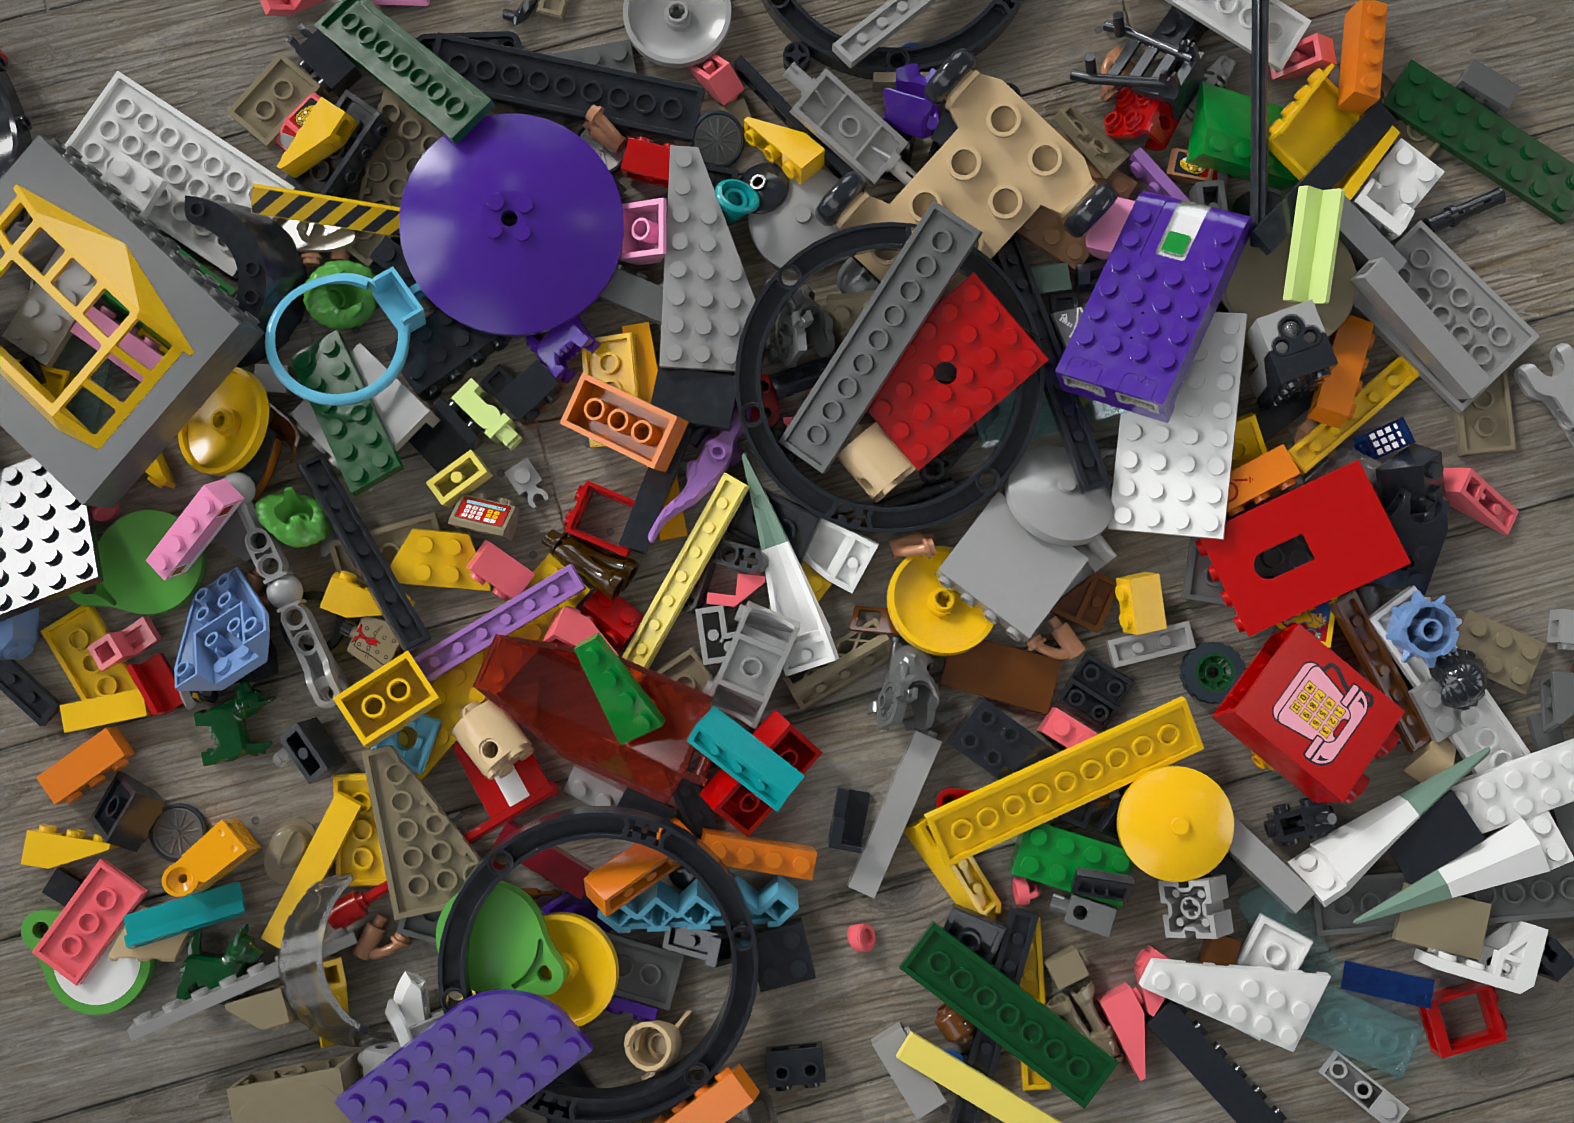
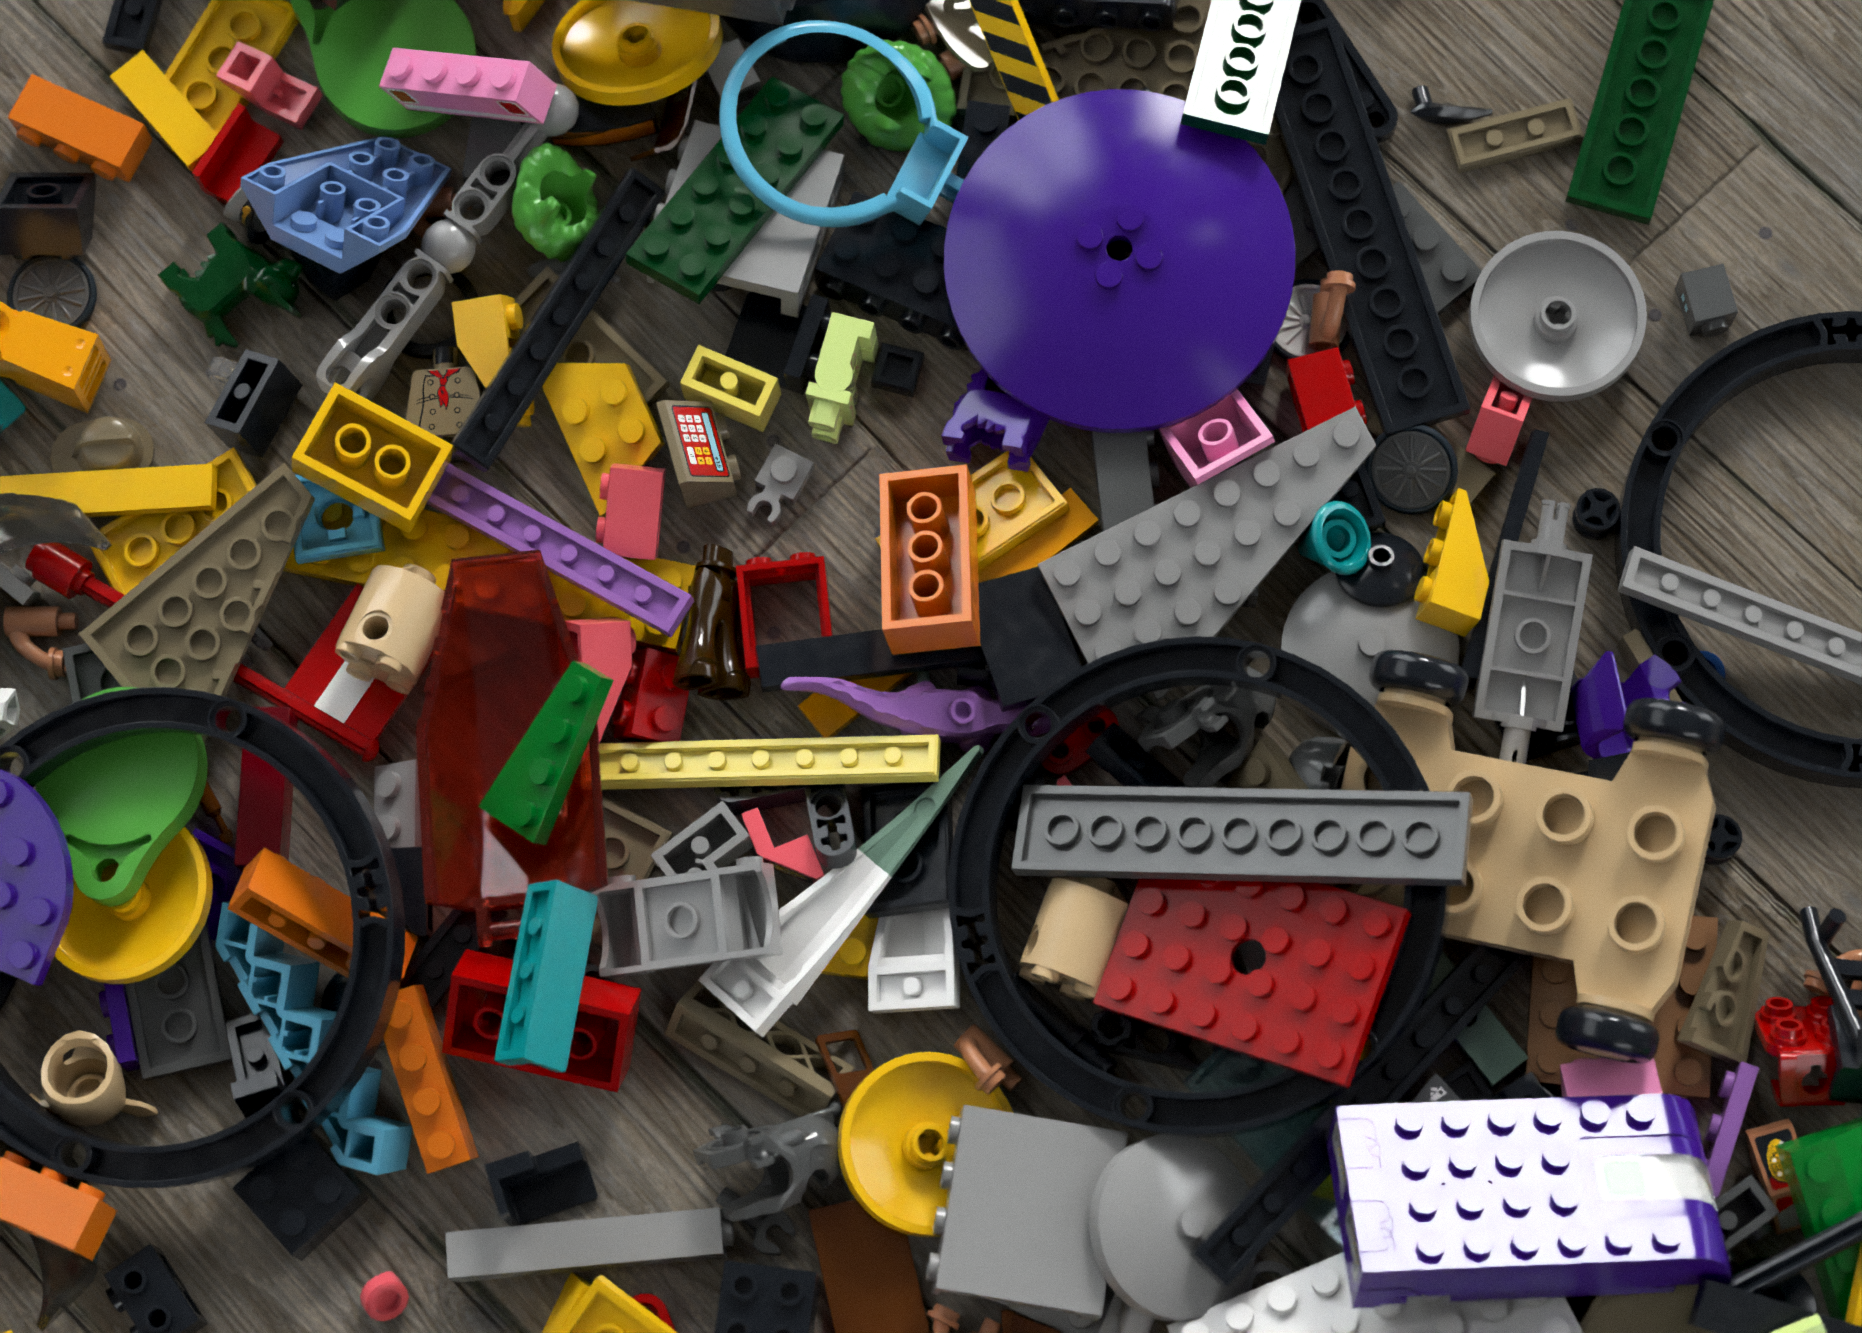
camera: 65 degrees right, 10 degrees down
(530, 393) = (903, 415): black brick -> none

